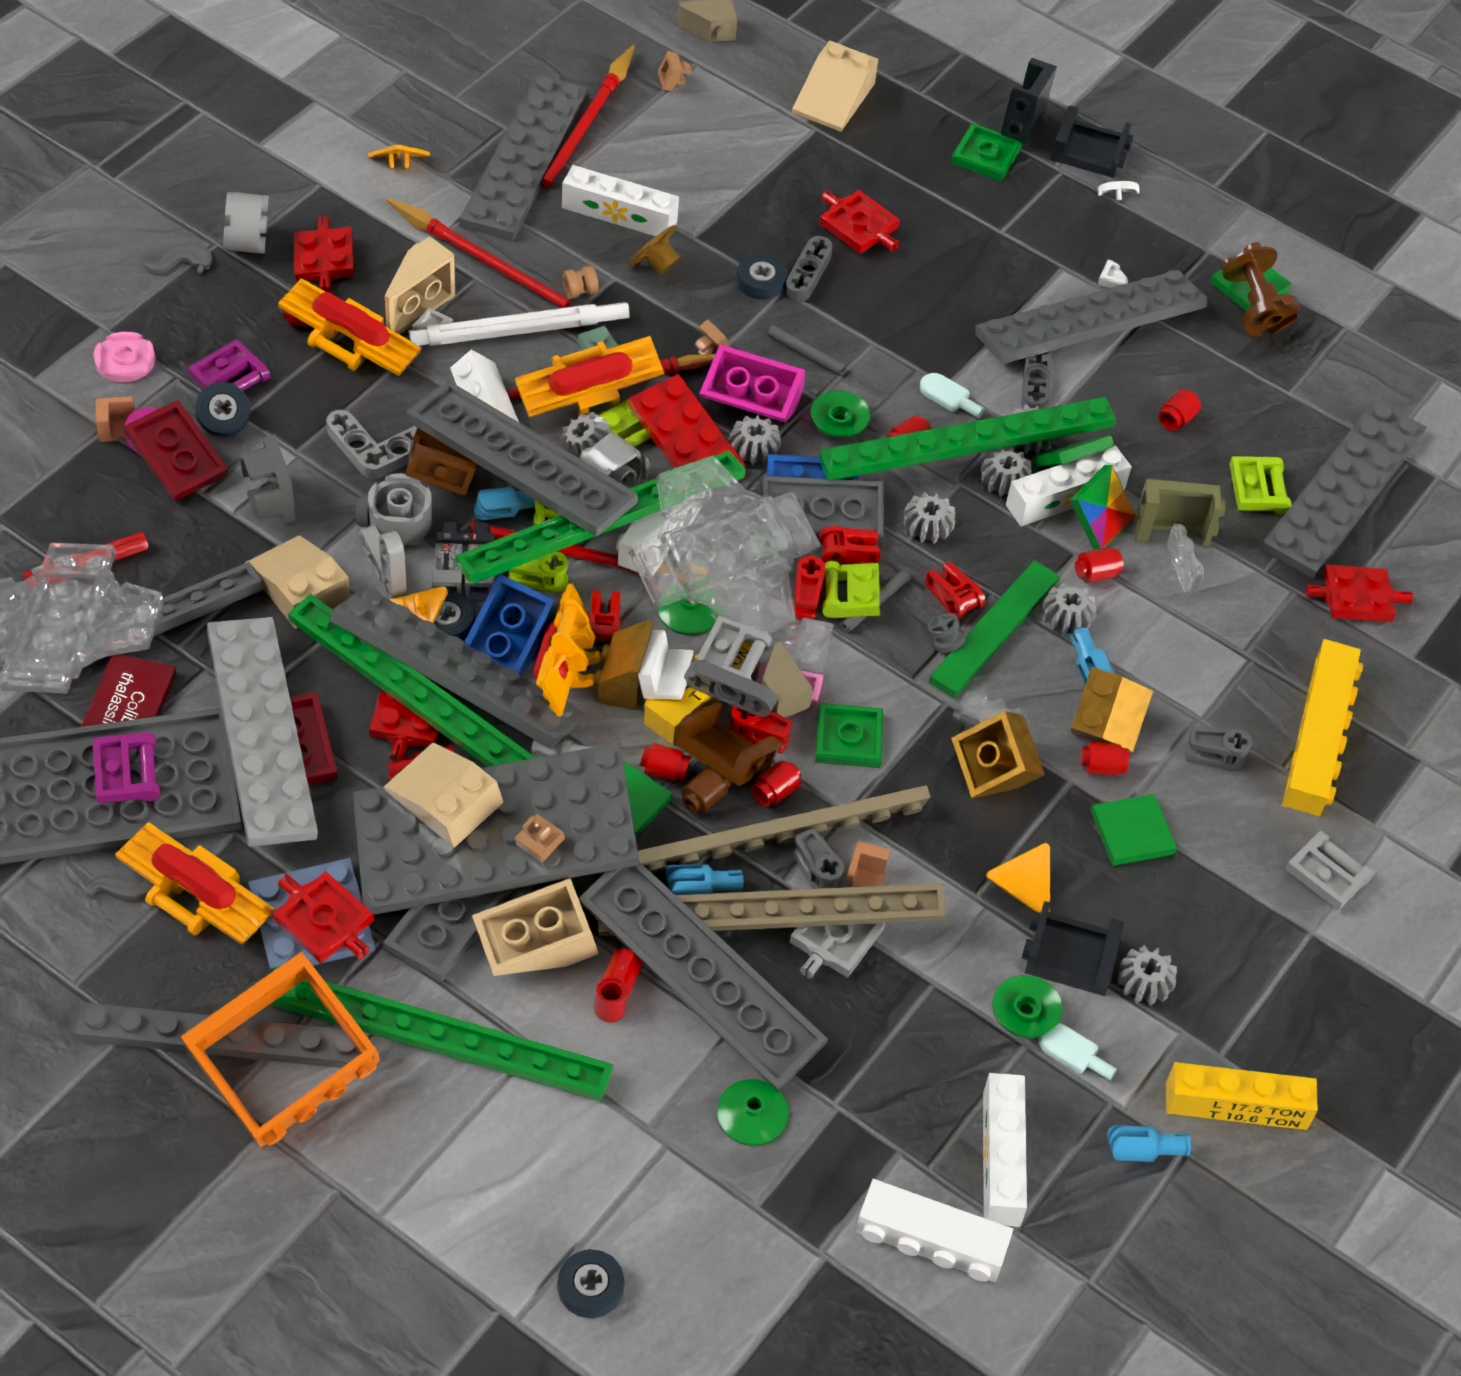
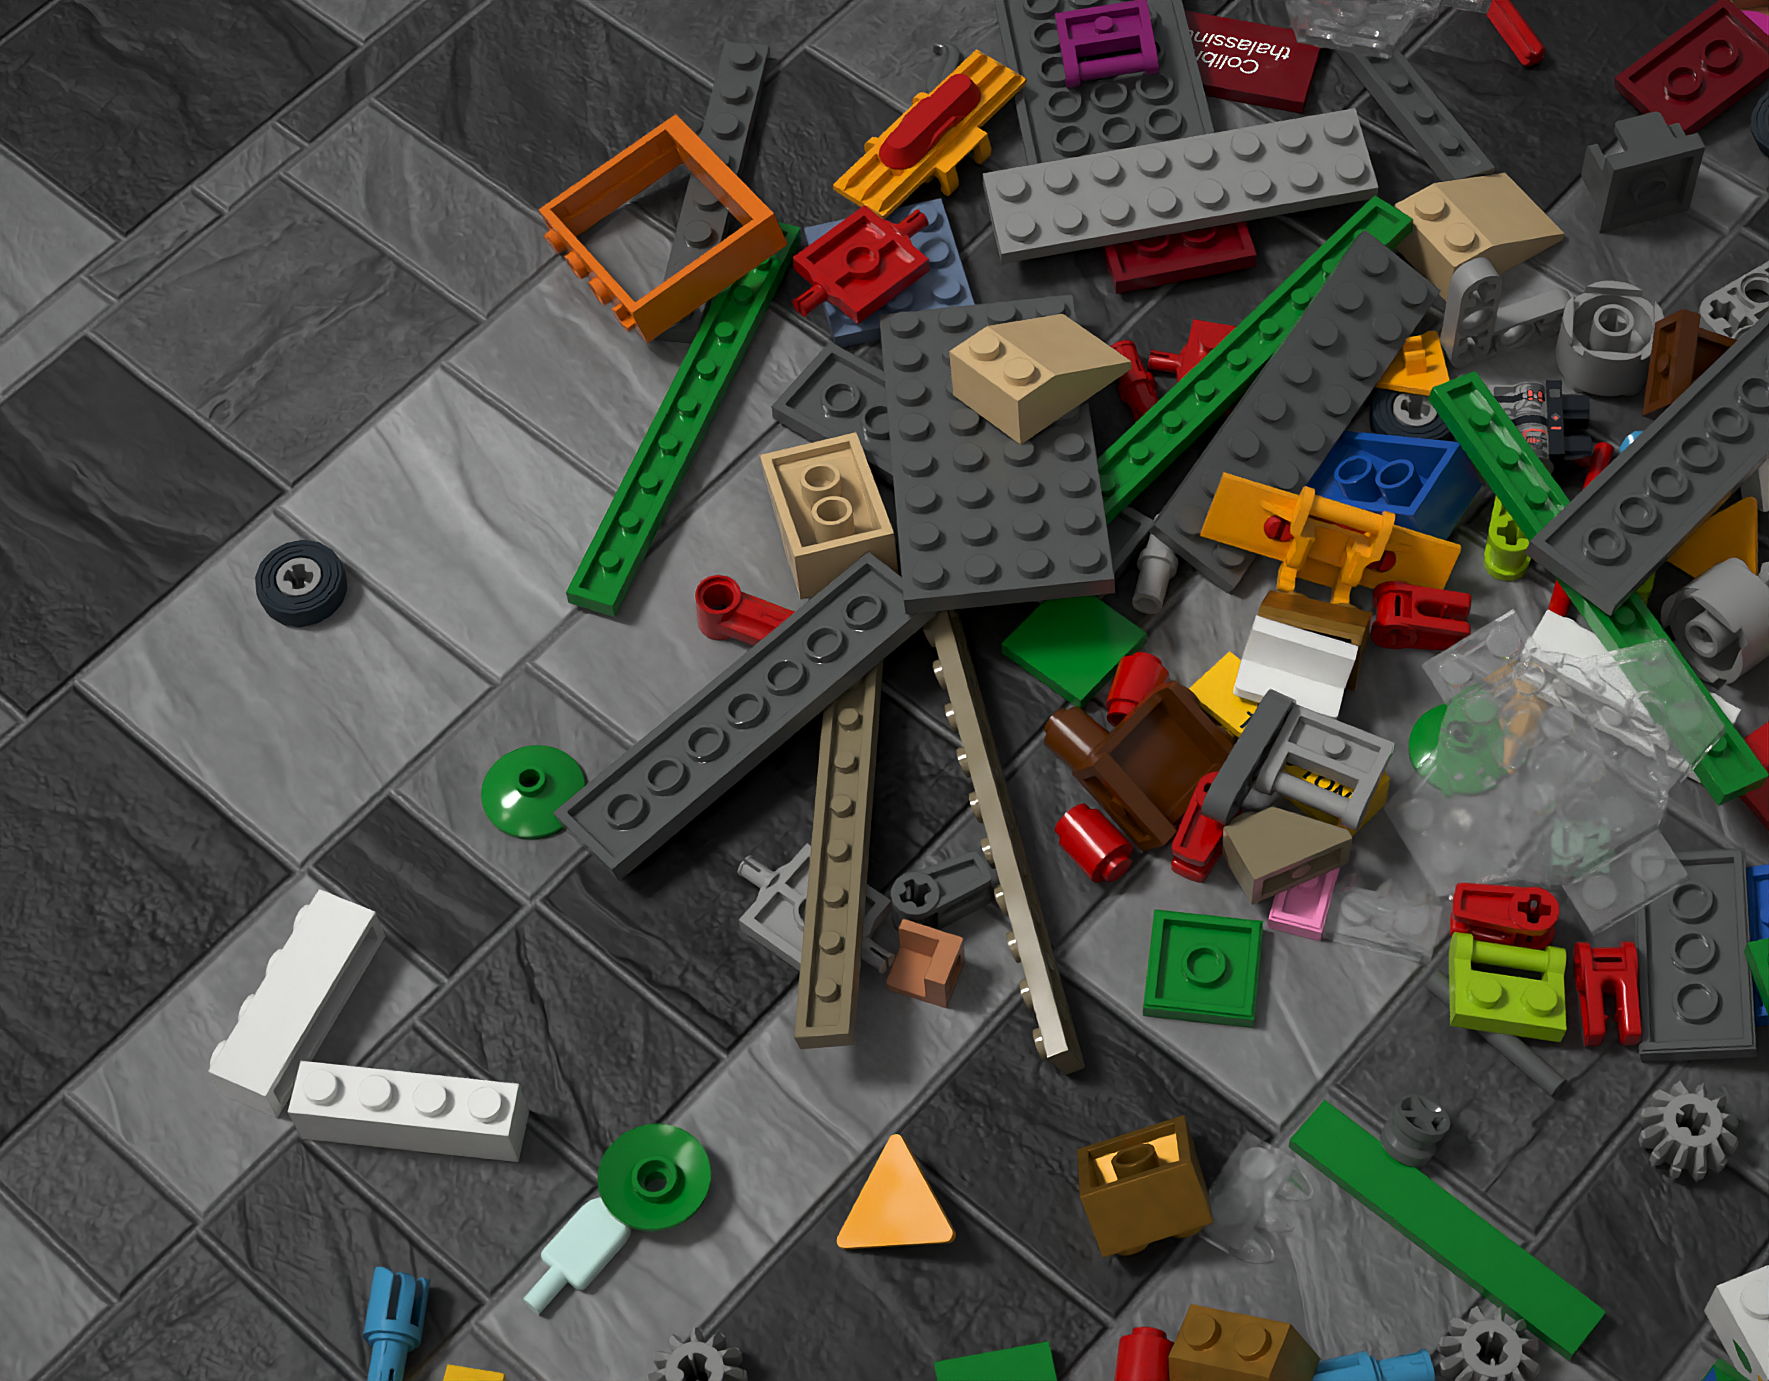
camera: 105 degrees right, 5 degrees up
(539, 837) = (945, 477): medium nougat tile -> none
(702, 880) = (915, 737): dark azure arm -> none
(955, 590) = (1505, 1174): red piece -> none
(1072, 951) = (761, 1267): black panel -> none

